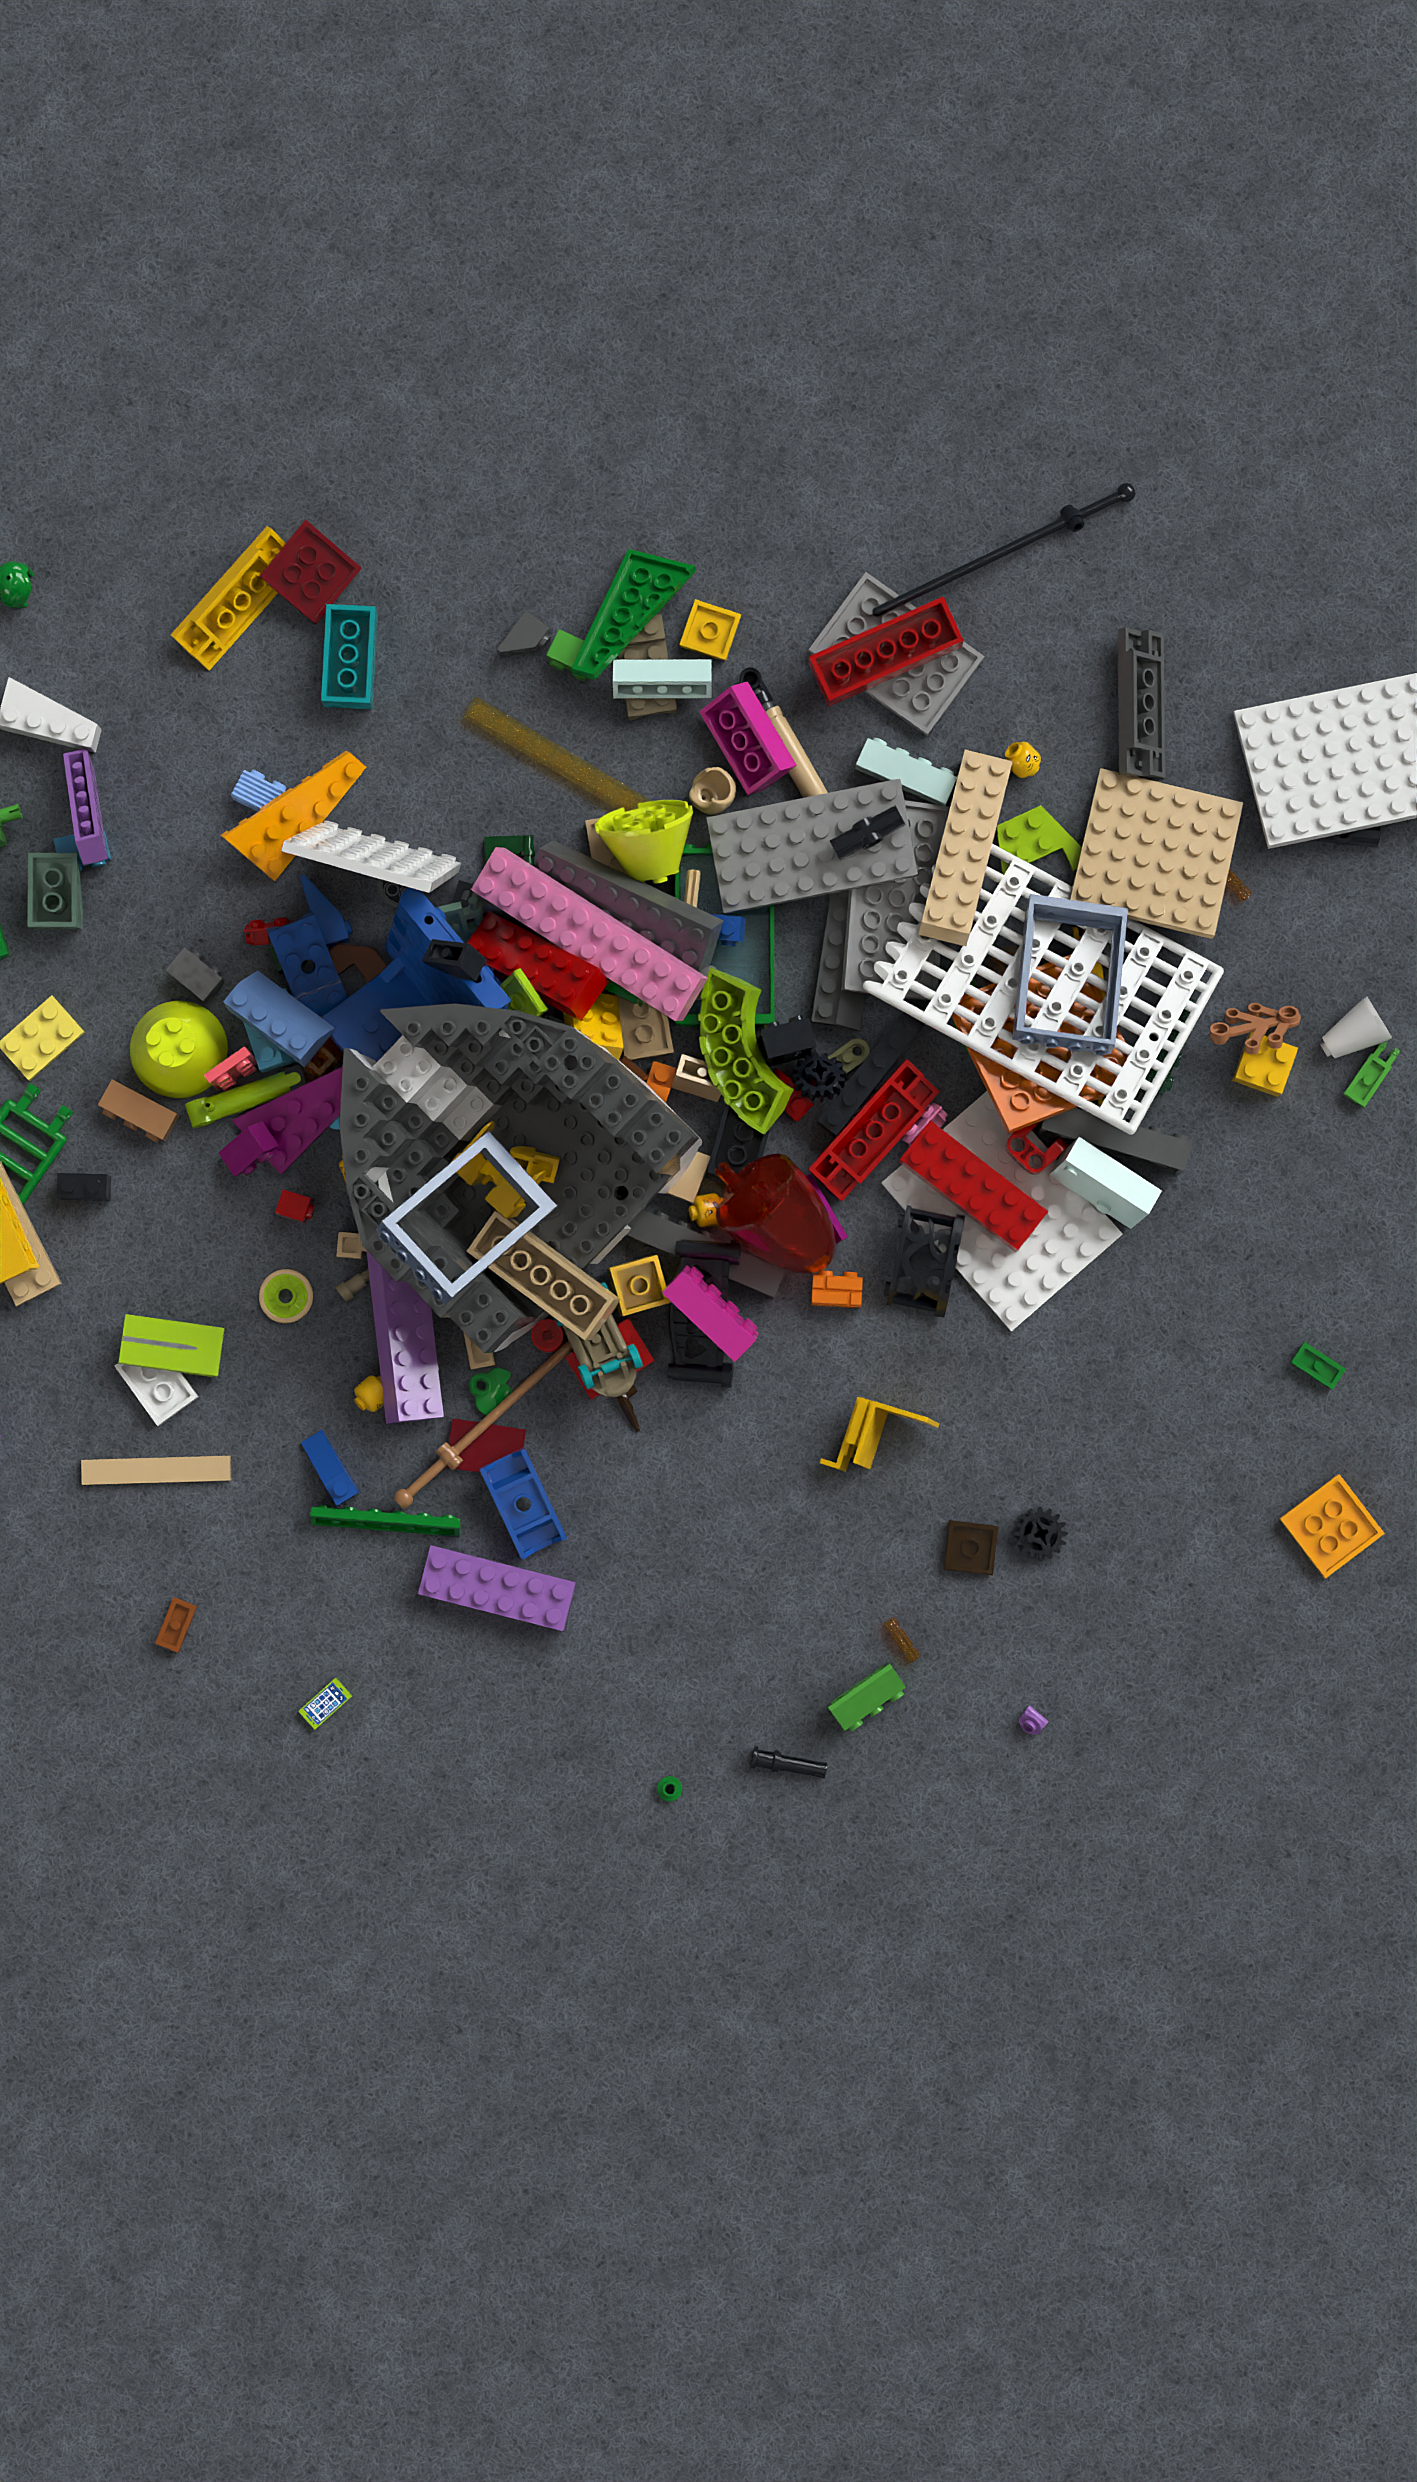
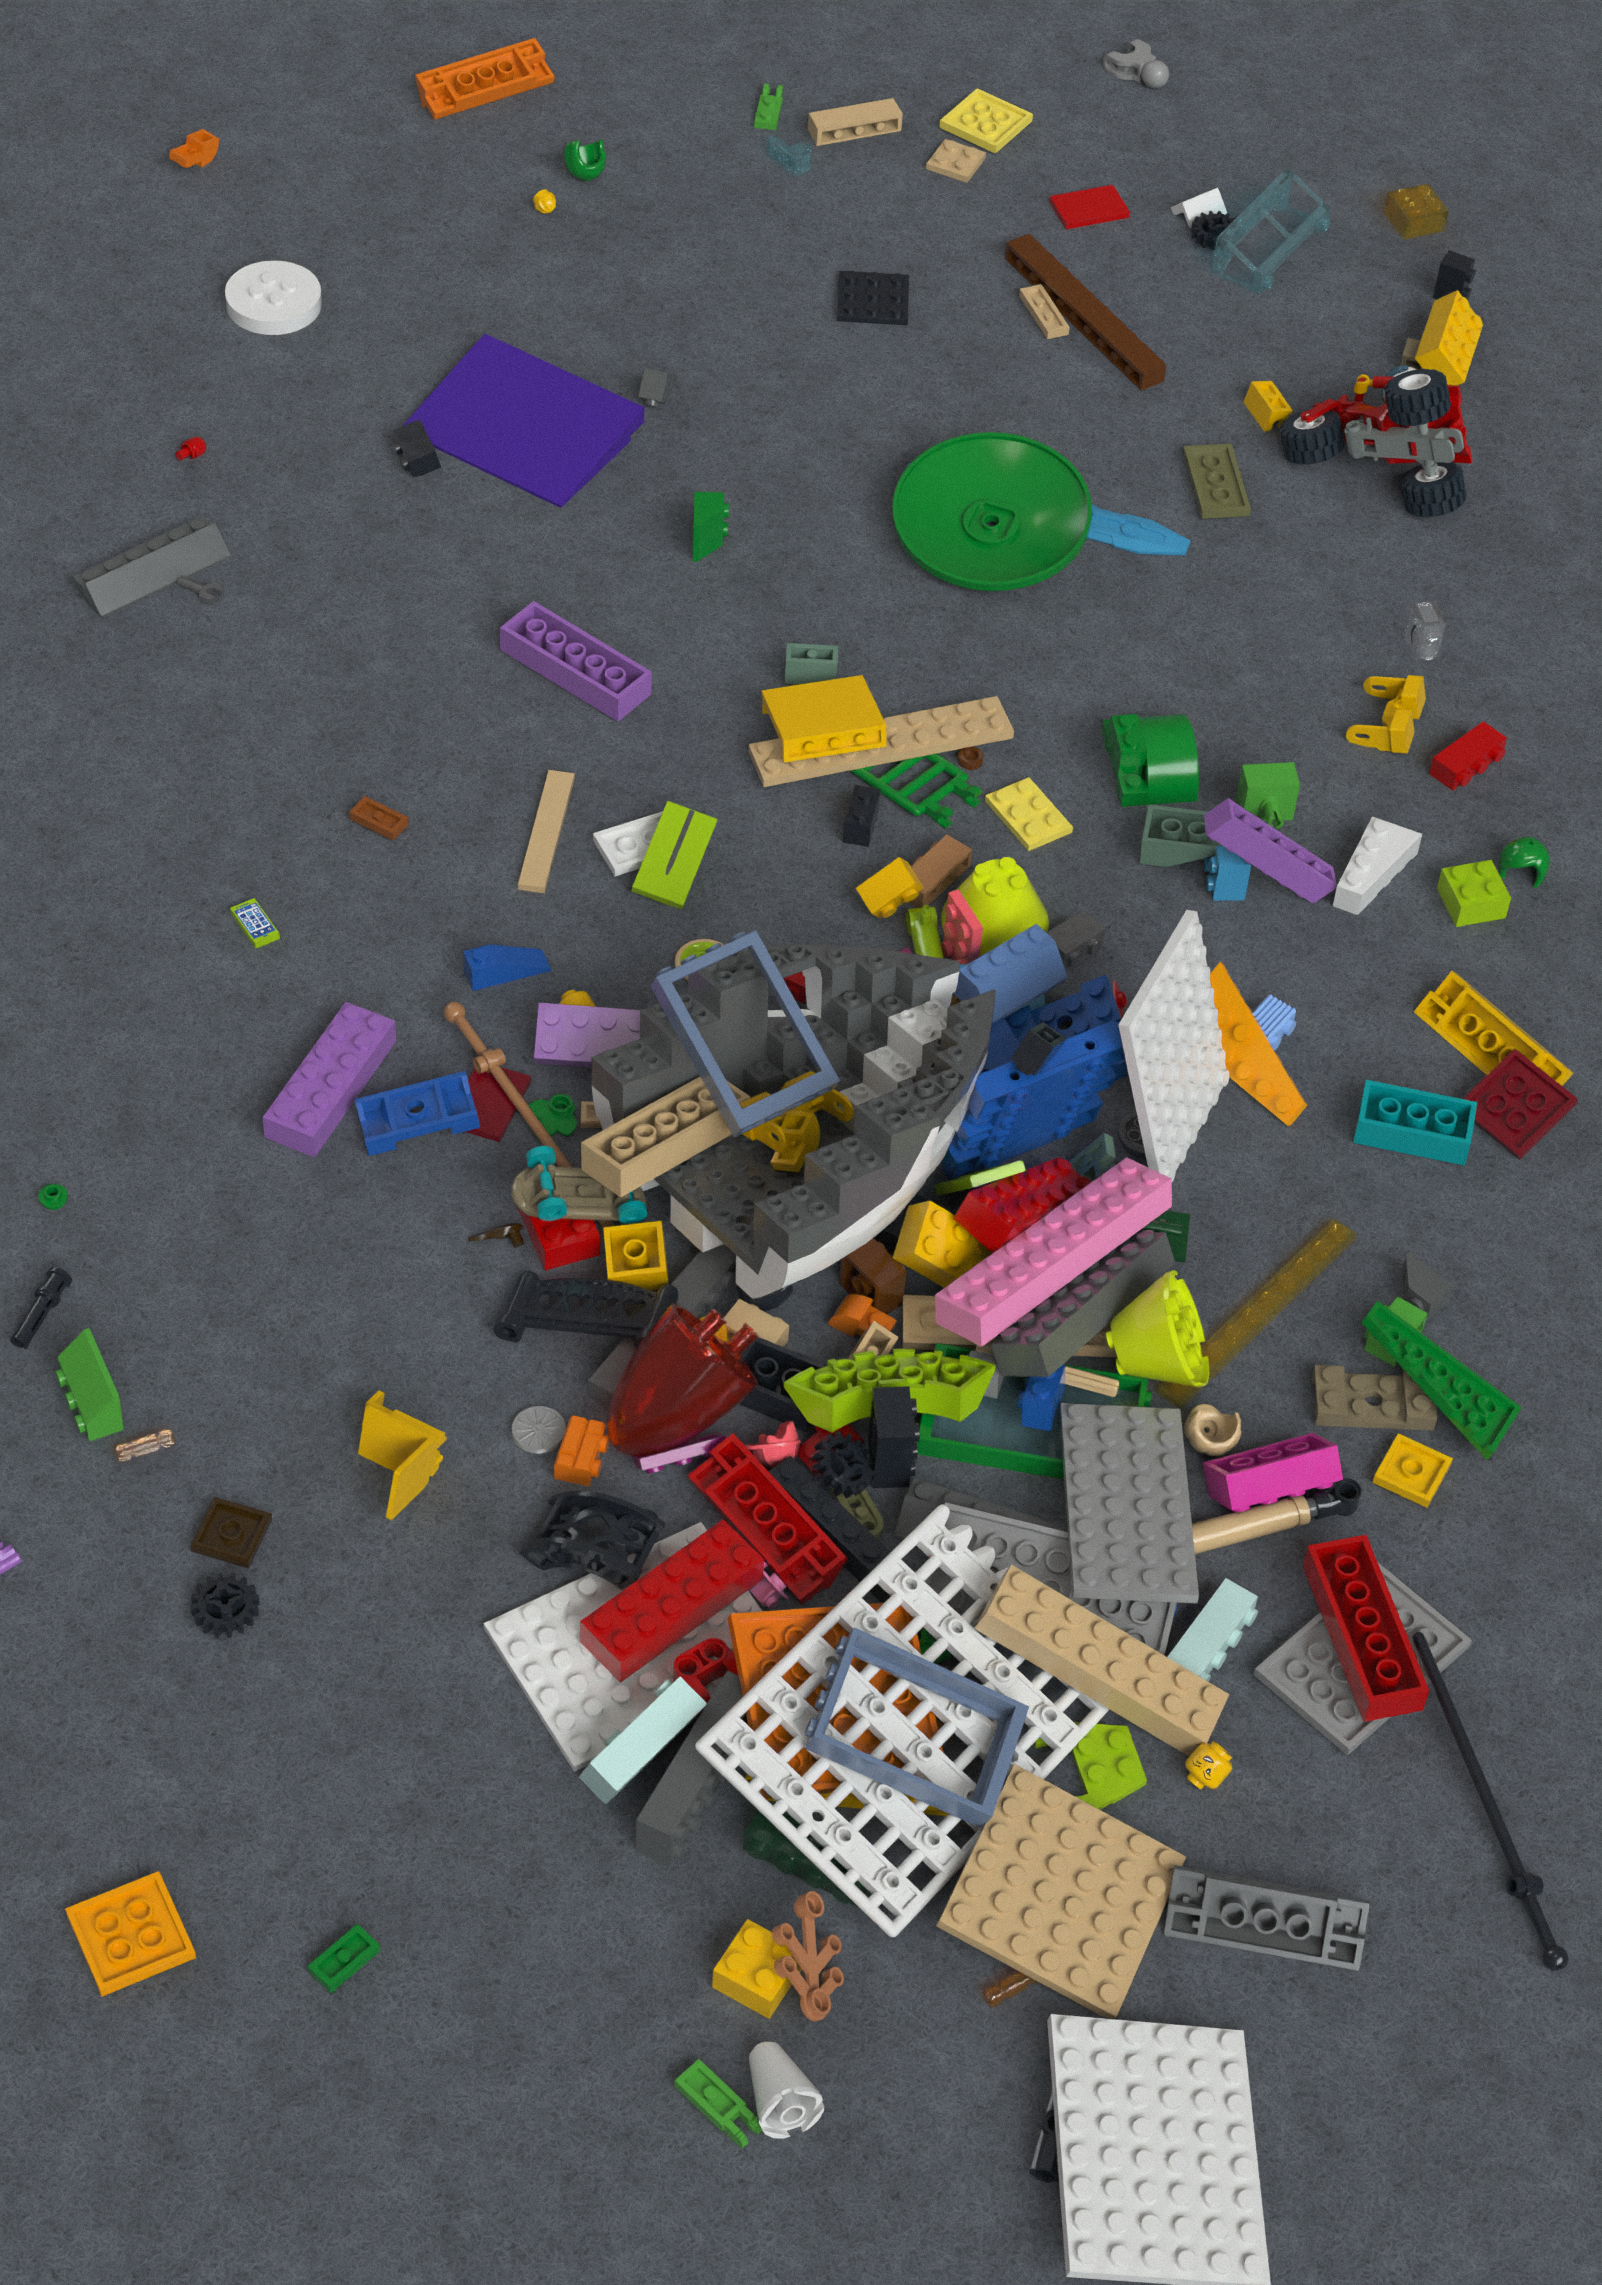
camera: 95 degrees right, 35 degrees down
(62, 627) = (1473, 893): none -> lime brick
(178, 1144) = (890, 888): none -> yellow brick
(248, 1149) = (872, 937): magenta brick -> none
(377, 1520) = (431, 1008): green plate -> none
(662, 678) = (1356, 1396): light aqua brick -> none
(711, 1313) = (583, 1295): dark pink brick -> none
(801, 1138) = (777, 1448): none -> coral piece
(817, 1330) = (538, 1429): none -> light grey wheel
(867, 832) = (1134, 1539): black piece -> none

